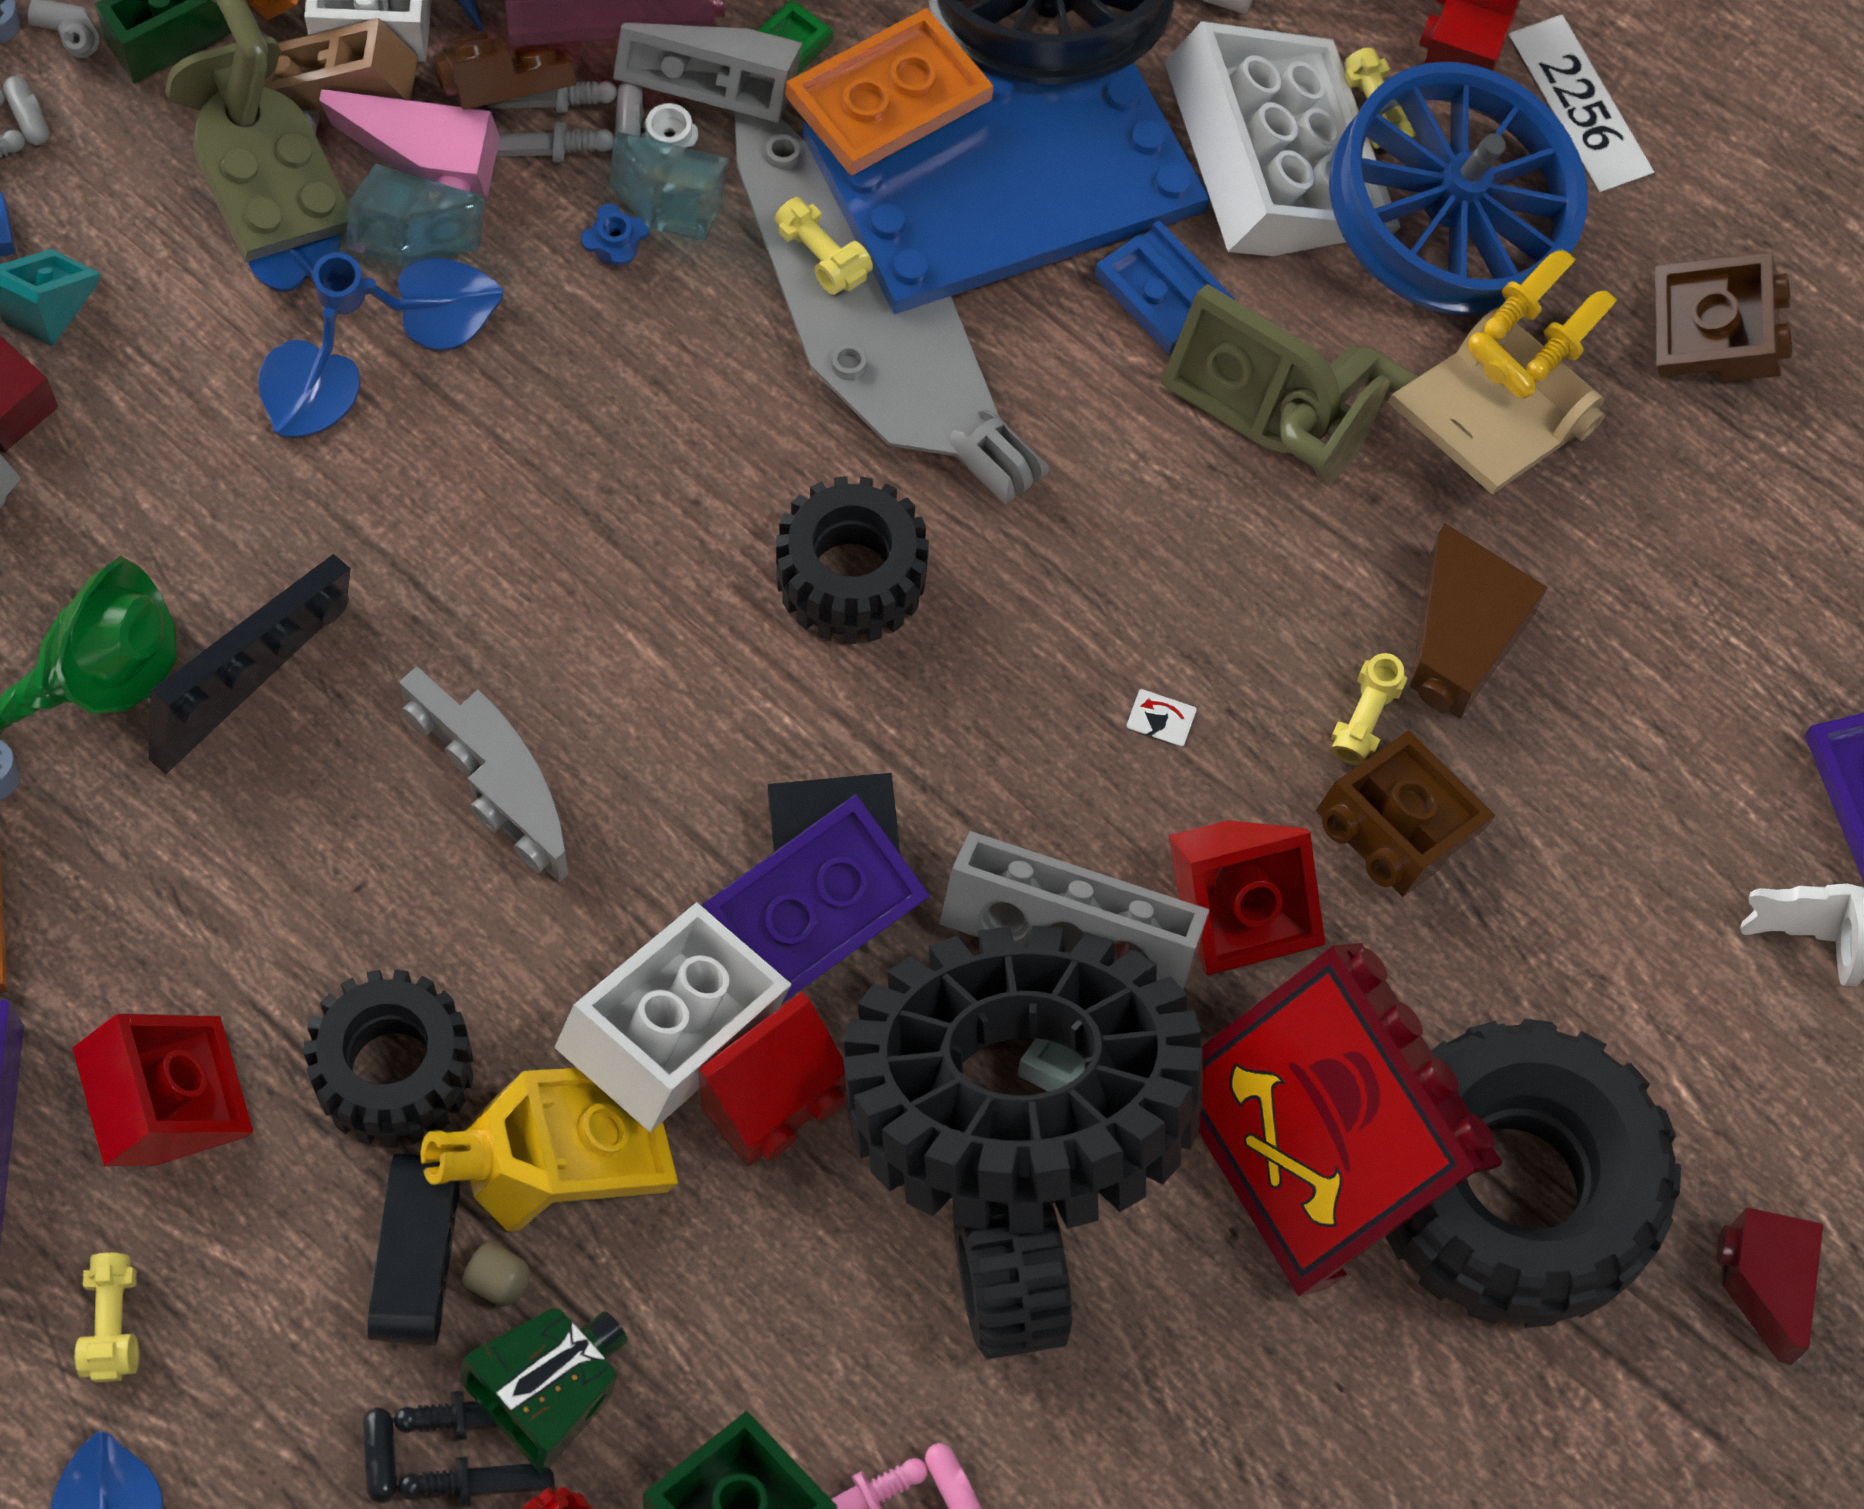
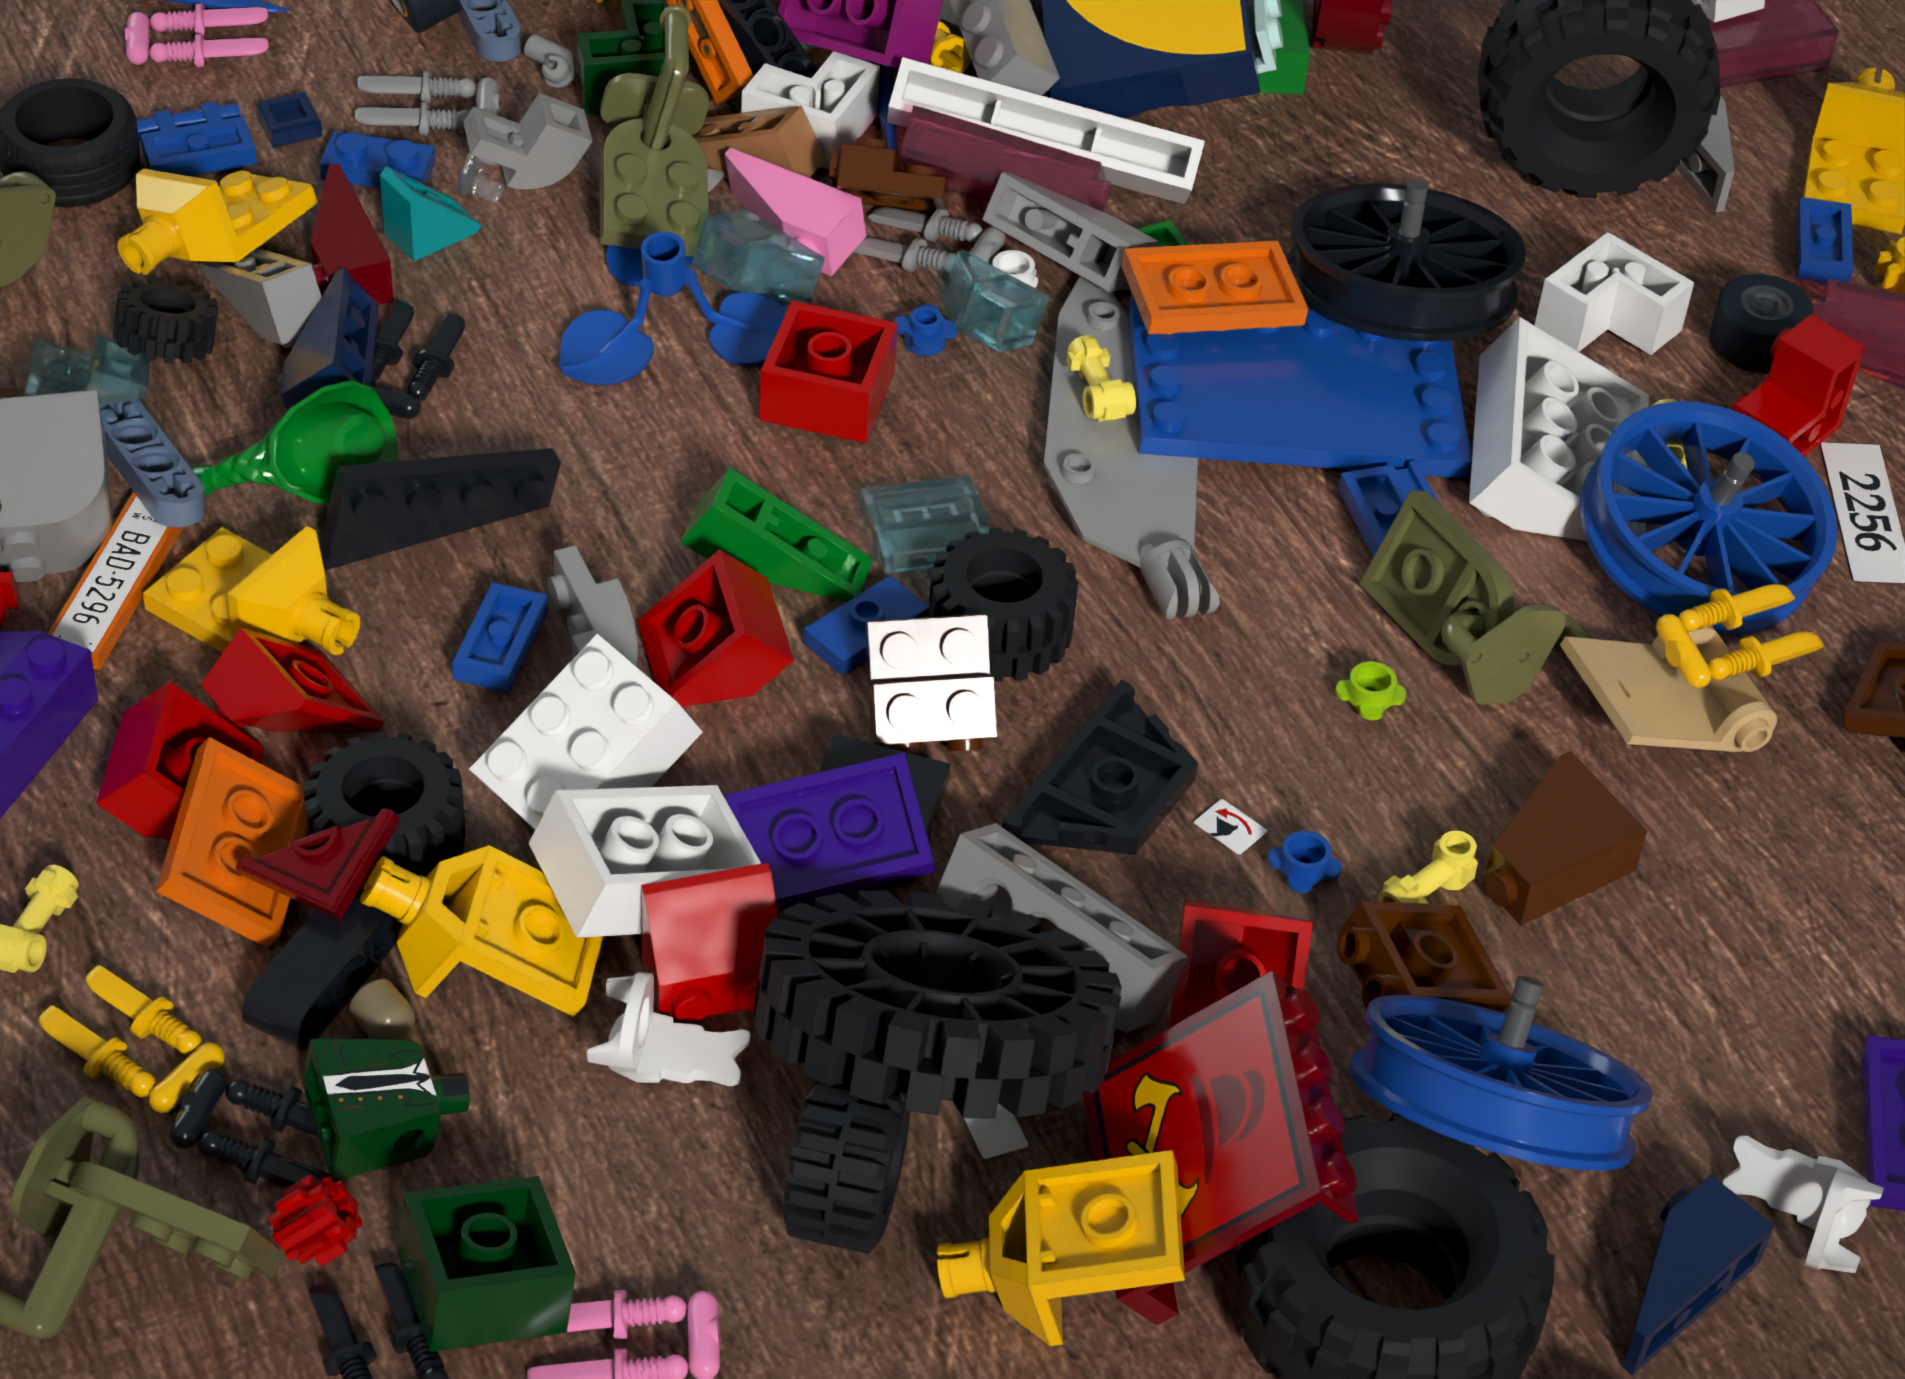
camera: 25 degrees right, 20 degrees down
(46, 517) = (334, 343): none -> dark blue slope
(60, 219) = (474, 182): none -> clear bar
(86, 481) = (429, 363): none -> black piece
(113, 161) = (536, 149): none -> light grey brick
(119, 849) = (240, 585): none -> yellow plate
(217, 948) = (284, 688): none -> red slope
(265, 1153) = (228, 814): none -> orange plate
(277, 1371) = (148, 1018): none -> yellow piece
(376, 1159) = (326, 865): none -> dark red tile
(387, 793) = (500, 637): none -> blue plate
(552, 912) = (587, 730): none -> white brick
(555, 340) = (828, 371): none -> red brick
(594, 708) = (716, 634): none -> red slope
(596, 571) = (774, 540): none -> green slope
(726, 627) = (841, 634): none -> blue plate
(729, 482) = (920, 519): none -> clear light blue slope
(761, 1200) = (655, 1048): none -> white hair
(831, 688) = (930, 682): none -> plate
(1036, 721) = (1107, 782): none -> black wing
(1229, 496) = (1371, 689): none -> lime plate
(1248, 1261) = (1072, 1236): none -> yellow plate
(1251, 719) = (1305, 860): none -> blue plate
(1550, 920) = (1500, 1080): none -> blue wheel
(1752, 1036) = (1701, 1254): none -> dark blue slope

